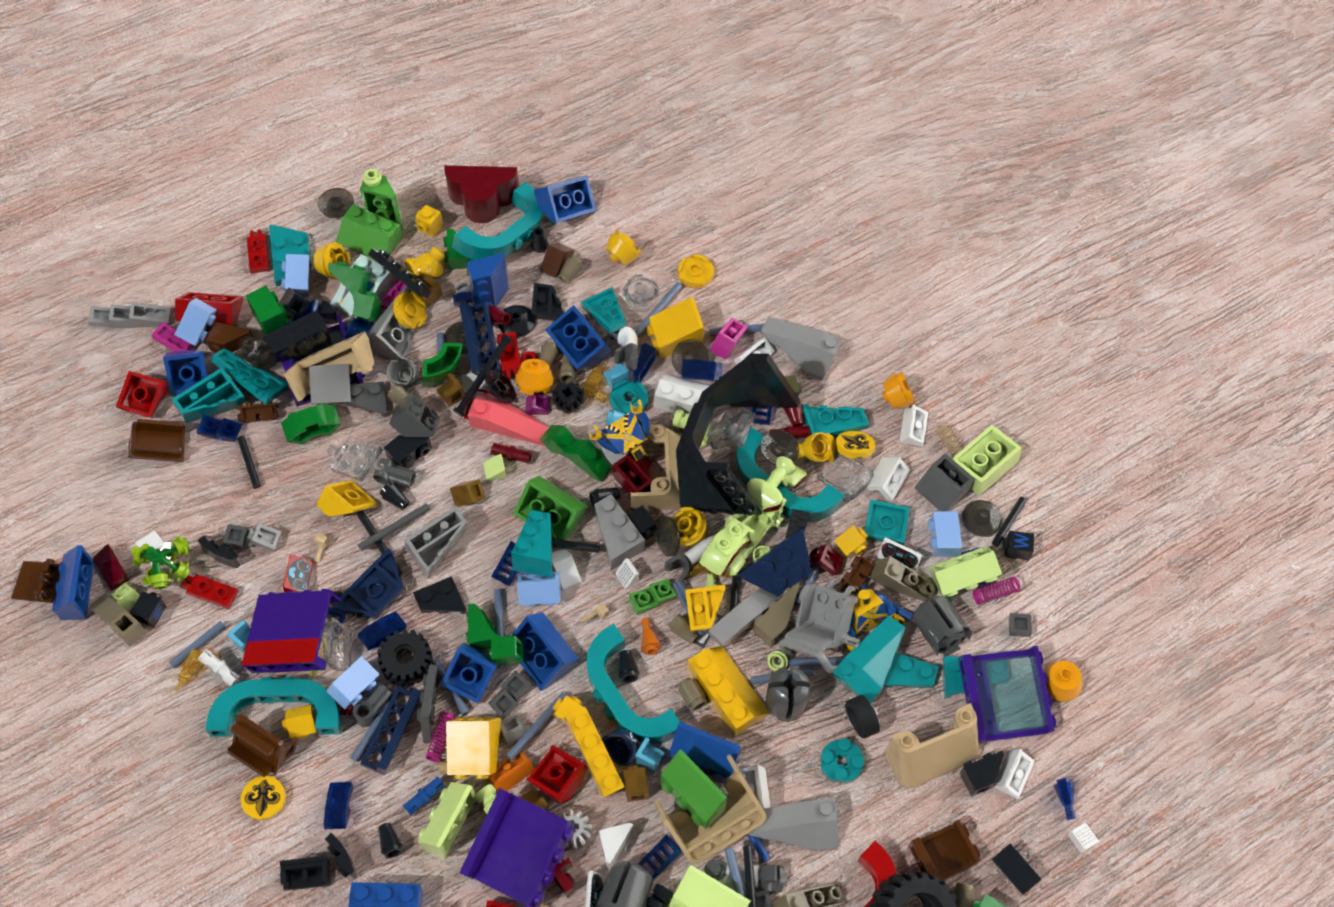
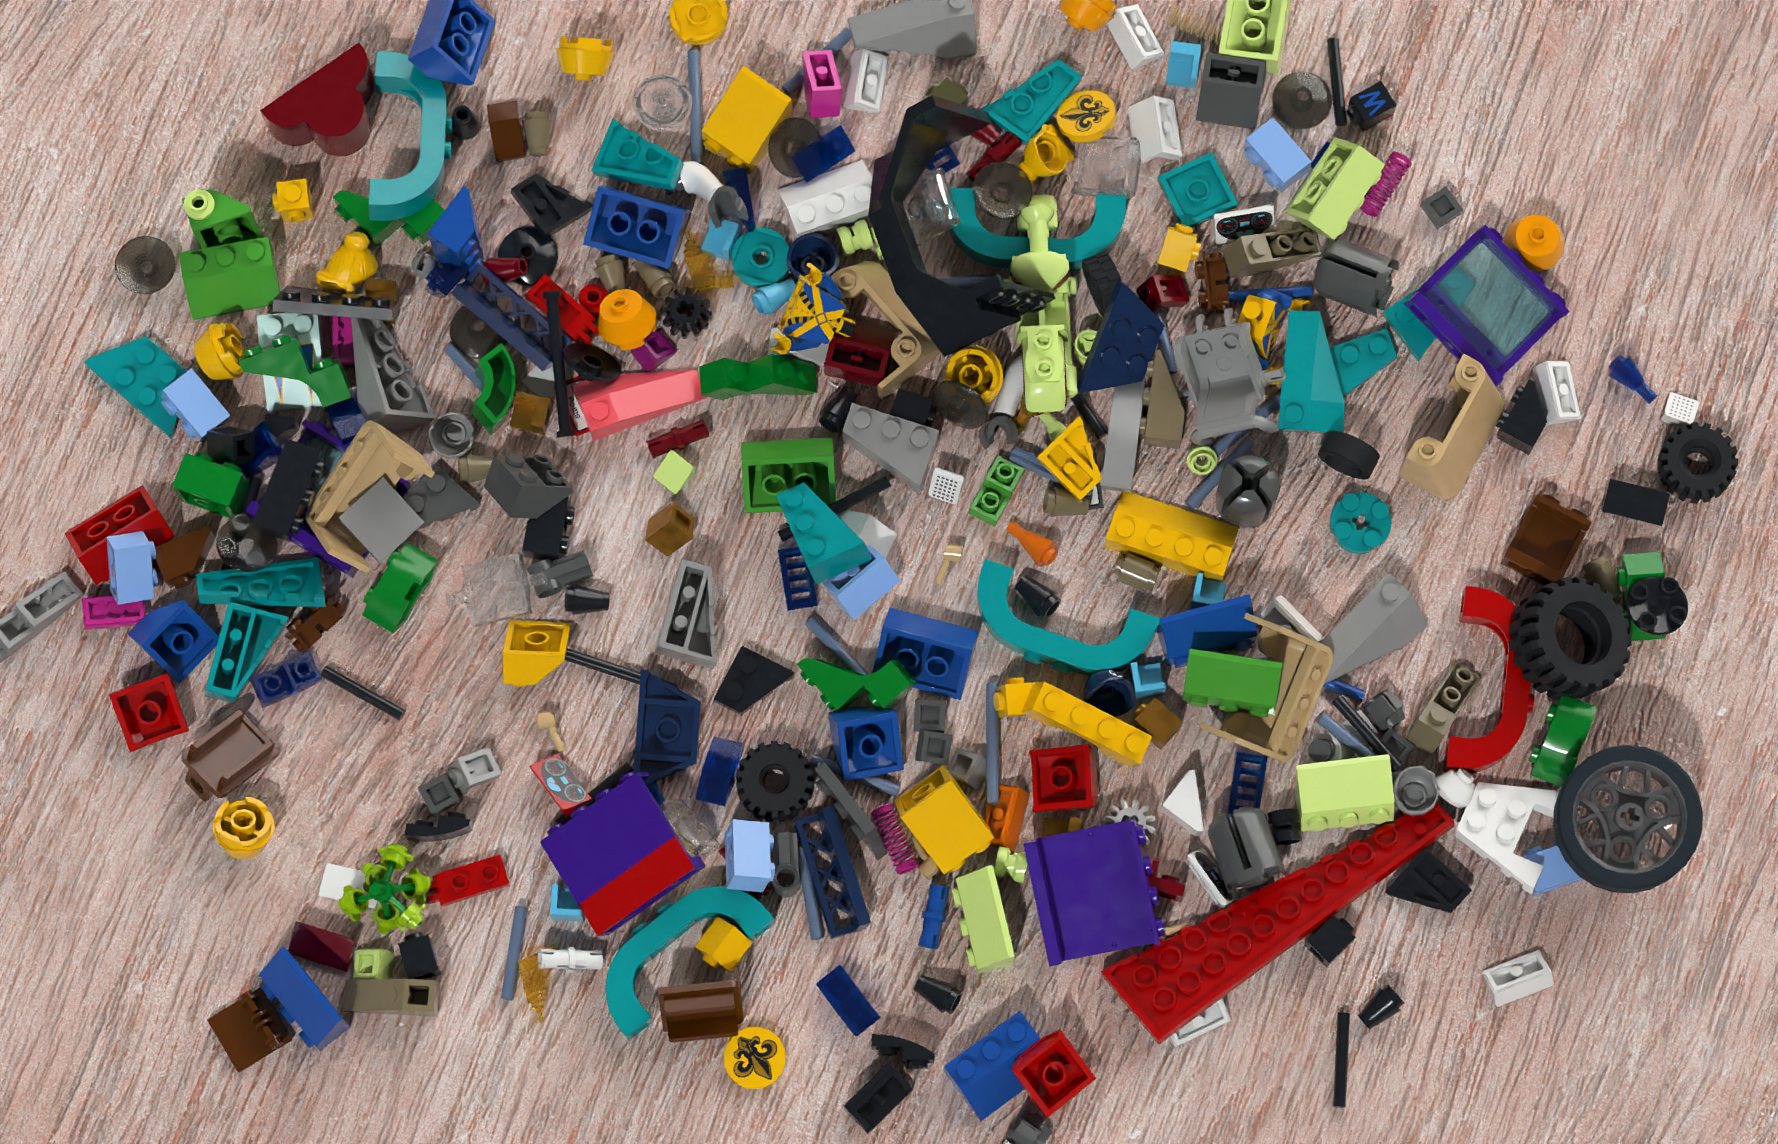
camera: 35 degrees left, 15 degrees up
(127, 479) = (243, 827): none -> yellow cone
(257, 252) = (103, 410): red hinge -> none
(393, 527) = (620, 638): dark grey bar -> none
(409, 310) = (387, 345): yellow tile -> none
(656, 411) = (812, 249): none -> dark blue helmet
(723, 731) = (1207, 592): none -> medium azure panel
(929, 455) = (1183, 64): none -> medium azure panel
(1084, 864) = (1703, 441): none -> black tyre

